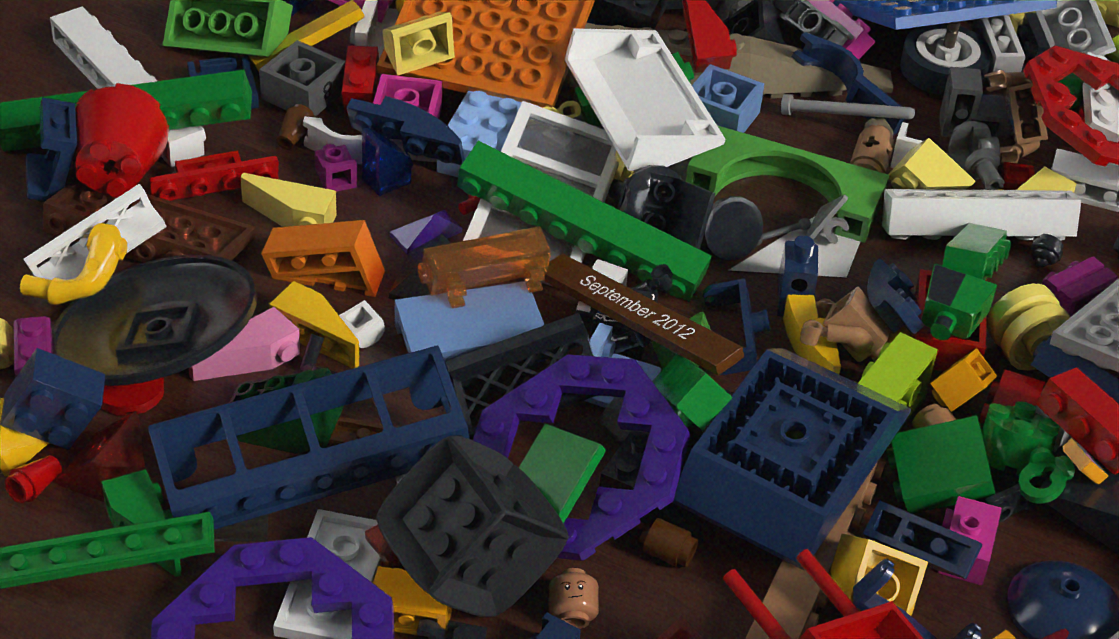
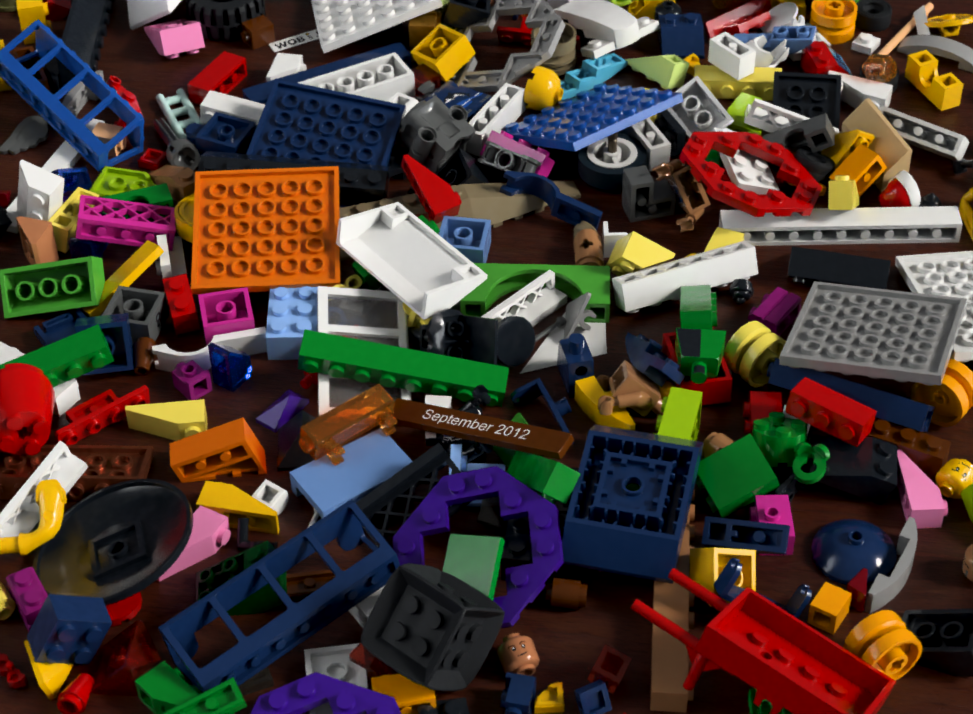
camera: 15 degrees left, 0 degrees up
(268, 99) = (118, 335): none -> dark blue brick
(419, 42) = (220, 261): light yellow slope -> none
(419, 130) = (250, 332): dark blue slope -> none
(785, 197) = (538, 304): none -> white fence
(790, 104) = (554, 222): light grey bar -> none
(962, 380) = (725, 408): light orange brick -> none
(977, 153) = (664, 230): dark grey piece -> none
(1016, 175) = (697, 239): red tile -> none
(1084, 461) = (834, 444): light orange tile -> none

